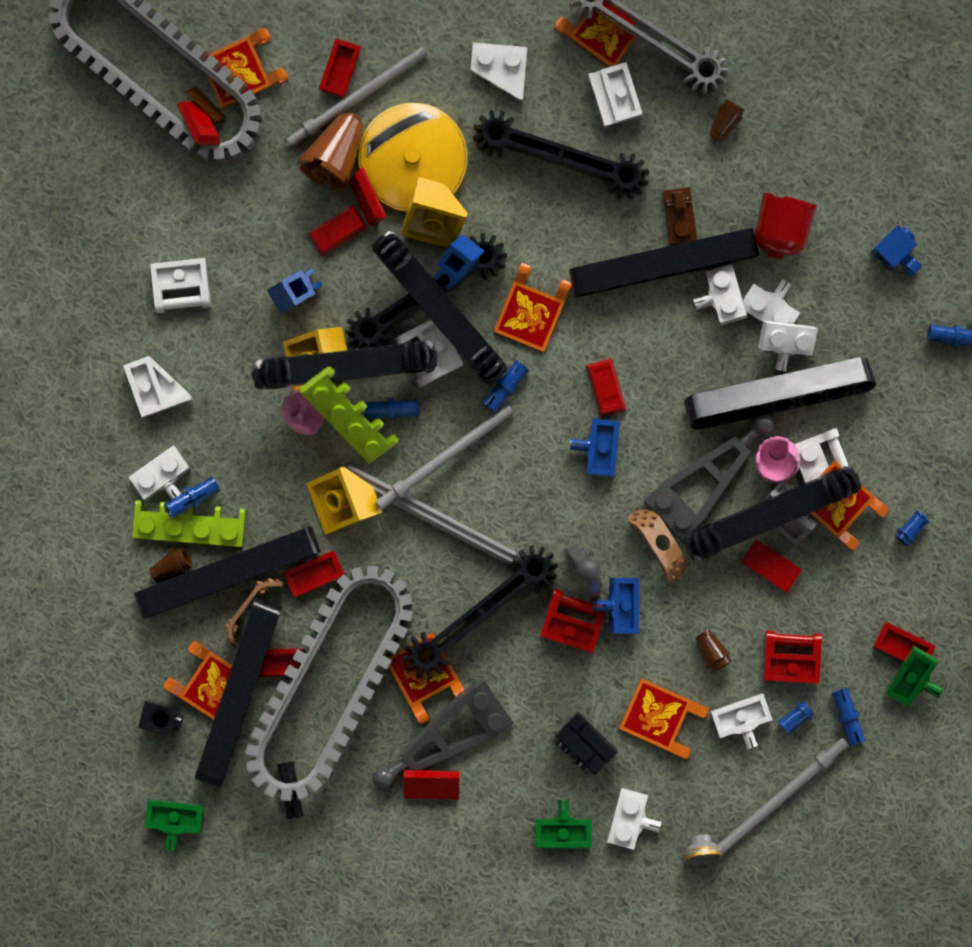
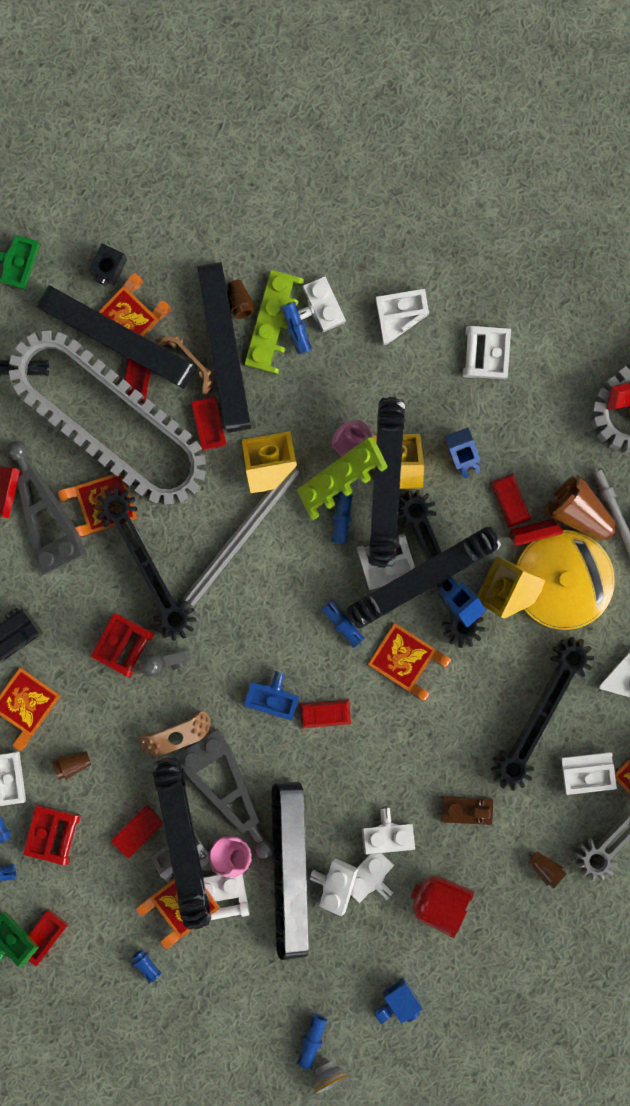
camera: 100 degrees right, 0 degrees up
(401, 488) = (268, 513): light grey bar -> none
(621, 605) = (127, 690): blue plate -> none
(663, 262) = (427, 788): black beam -> none

